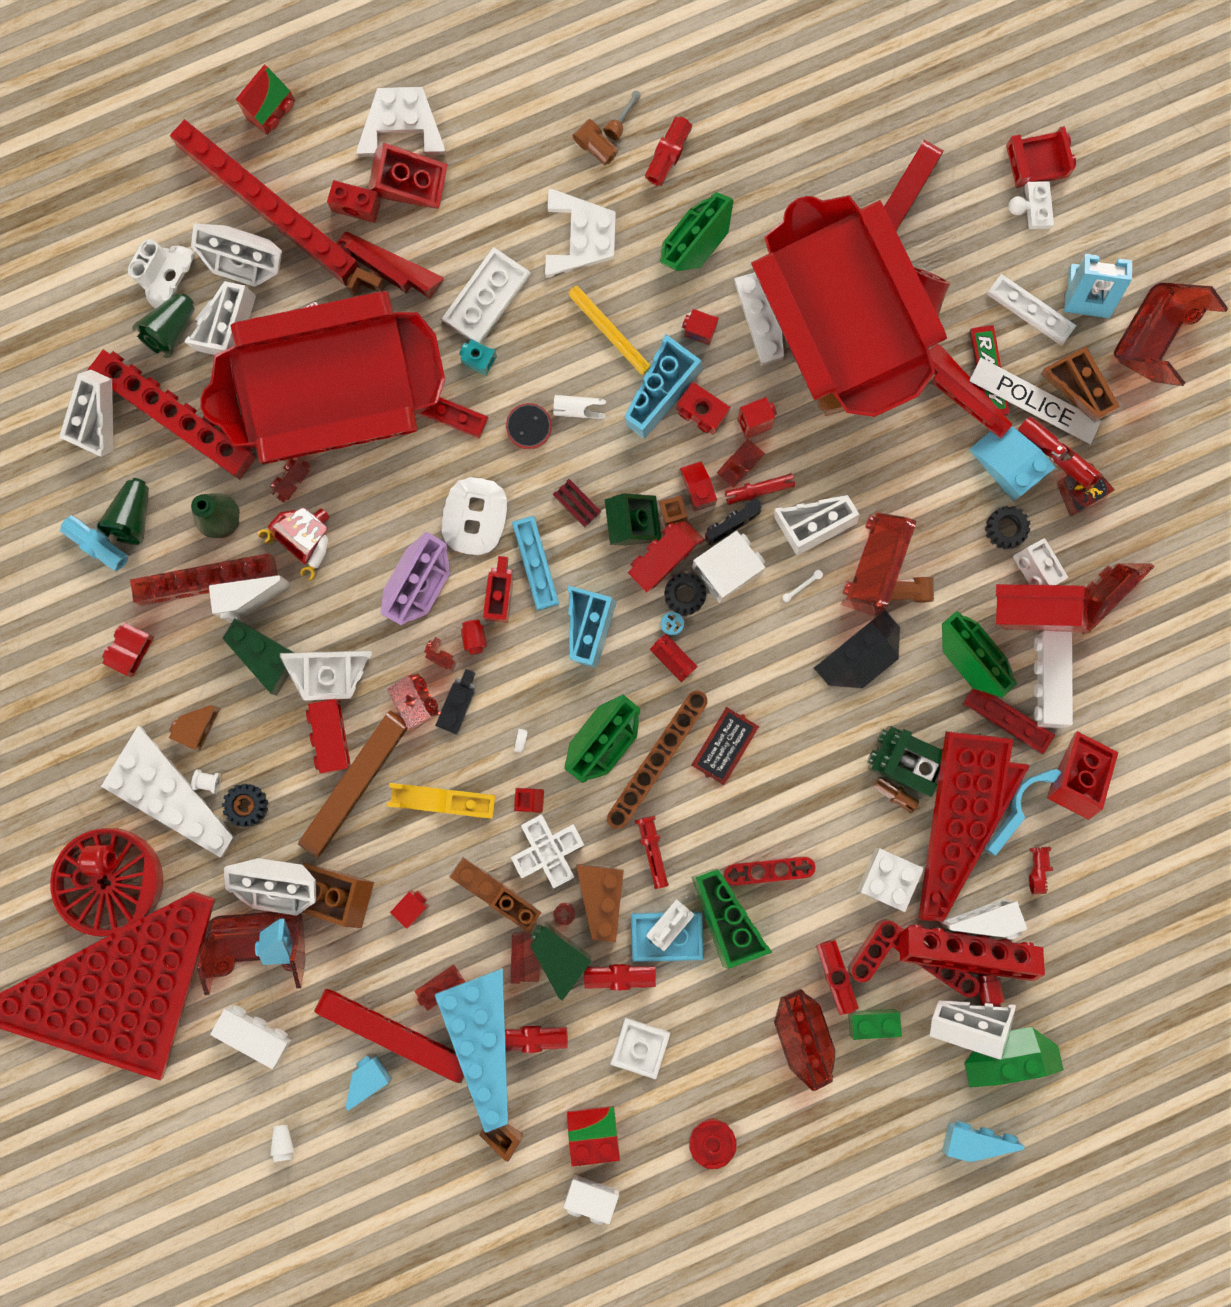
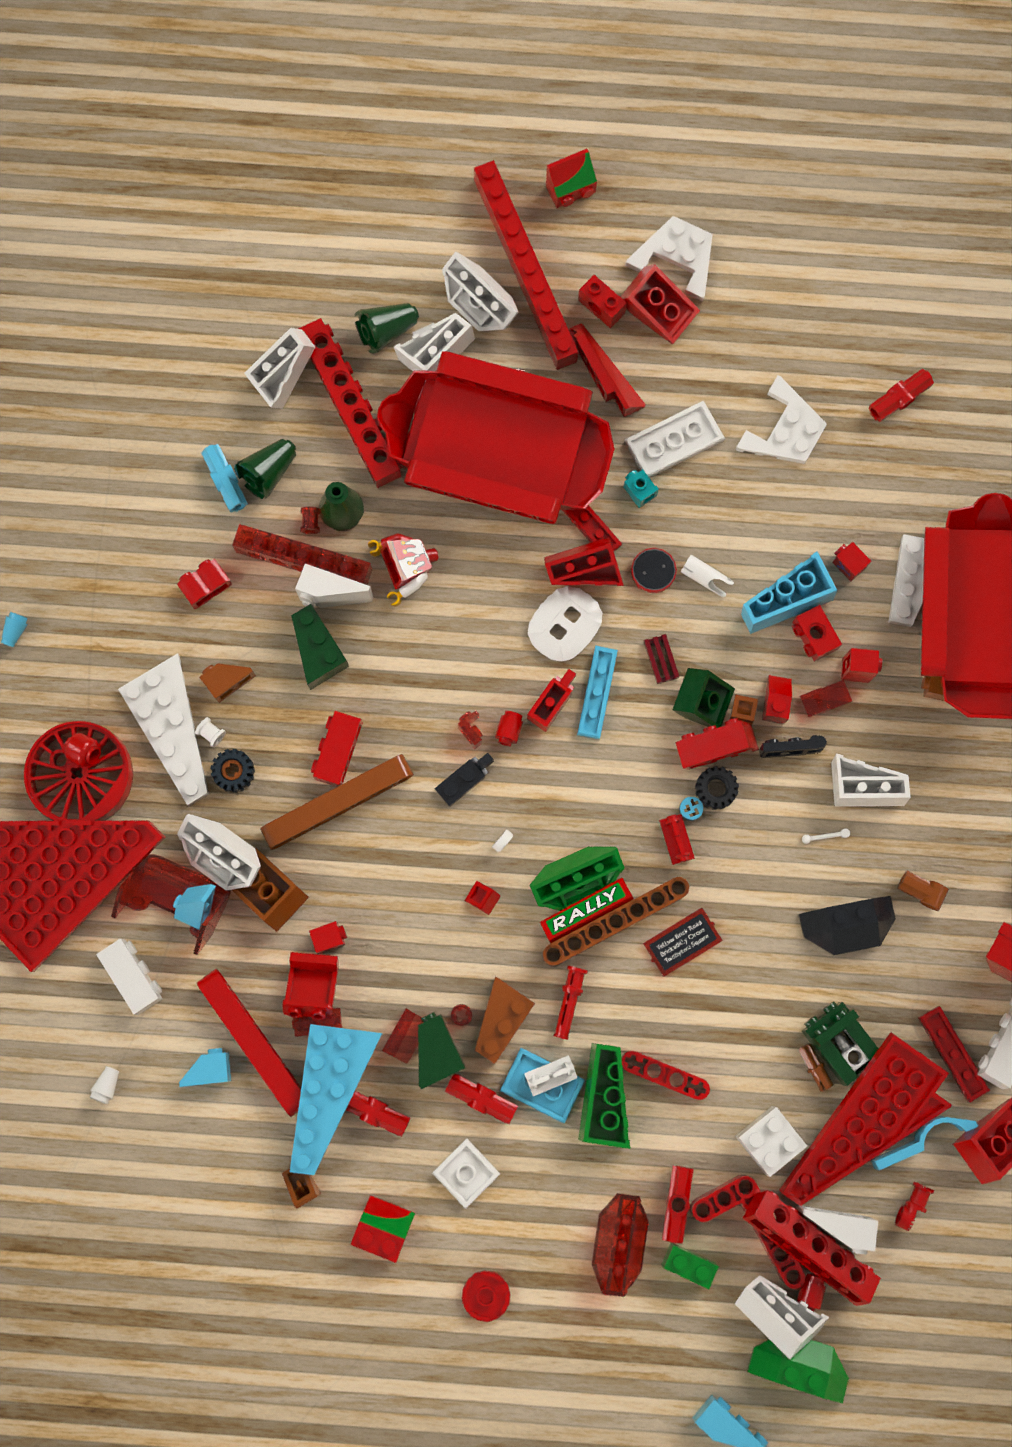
camera: 25 degrees right, 5 degrees down
(153, 263) = (399, 269): white piece -> none
(193, 541) = (310, 520): none -> clear red bush
(283, 485) = (428, 504): clear red hinge -> none
(325, 673) = (364, 692): white wing -> none
(368, 279) = (579, 373): dark orange bracket -> none
(413, 712) = (422, 766): clear red brick -> none
(416, 580) = (485, 652): lavender wedge -> none
(417, 960) = (311, 986): none -> red panel
(441, 800) = (406, 857): yellow piece -> none
(464, 453) = (585, 564): none -> red wedge
(495, 894) = (409, 965): dark orange slope -> none
(547, 851) = (475, 951): white plate -> none
(589, 625) = (617, 770): medium azure wedge -> none
(590, 137) = (838, 350): dark orange piece -> none
(591, 1200) = (351, 1286): white brick -> none
(609, 330) = (768, 523): yellow axle -> none
(614, 127) = (863, 352): dark orange hinge -> none
(626, 763) = (586, 910): none -> tile
(698, 233) = (890, 479): green wedge -> none
(728, 566) = (768, 783): white slope -> none
(759, 489) = (824, 728): red pin -> none
(879, 563) = (905, 850): clear red windscreen -> none
(976, 655) = (952, 980): green wedge -> none

